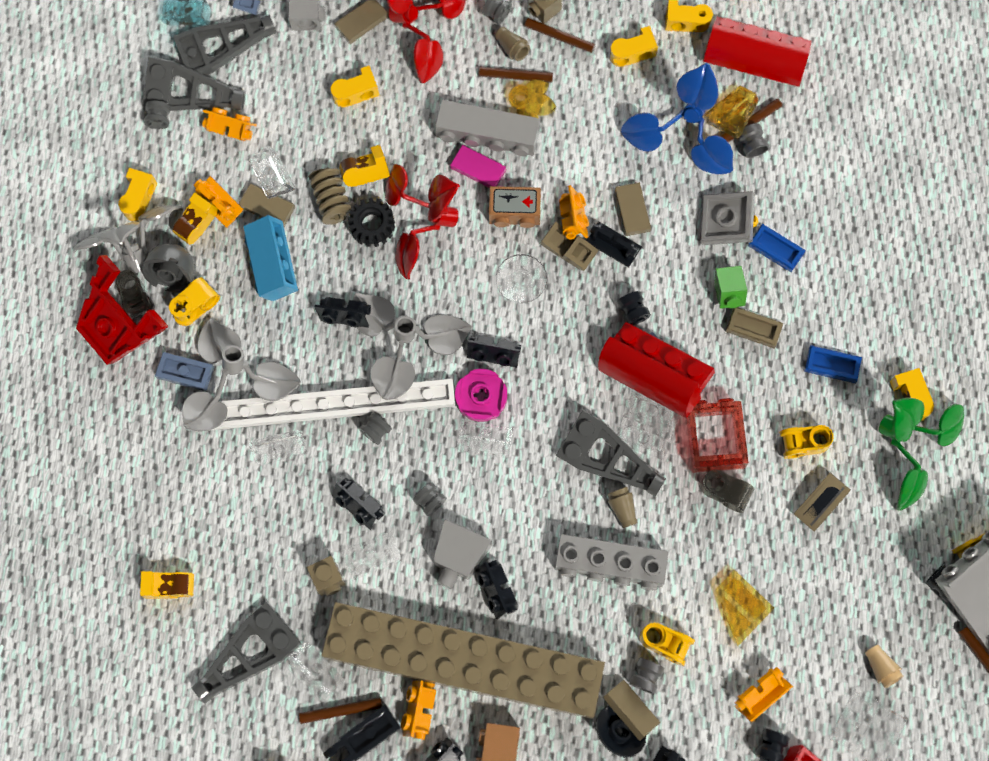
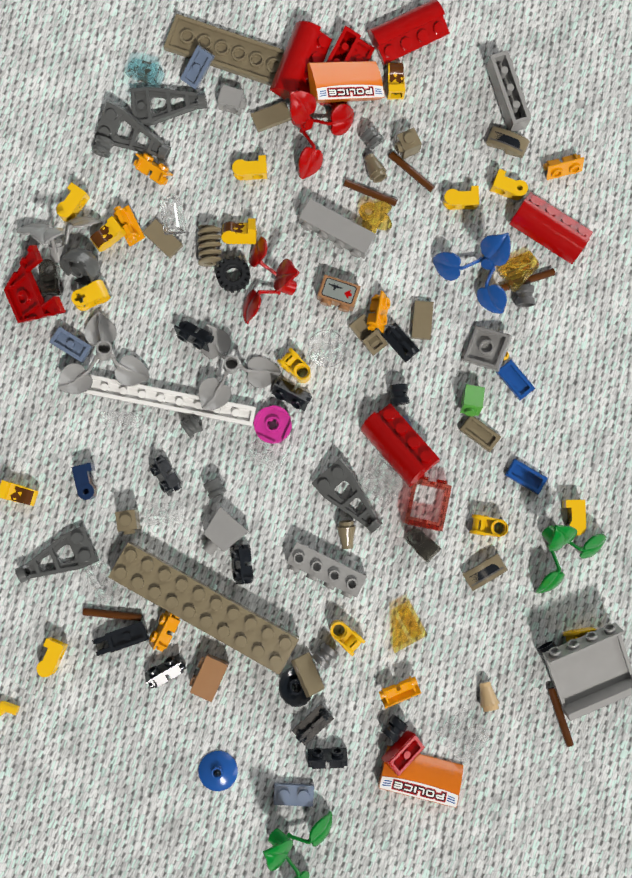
camera: 10 degrees right, 10 degrees up
(250, 541) = (83, 481): none -> dark blue leg
(270, 258) = (153, 280): dark azure brick -> none
(478, 167) = (321, 255): dark pink tile -> none
(483, 310) = (292, 363): none -> yellow piece

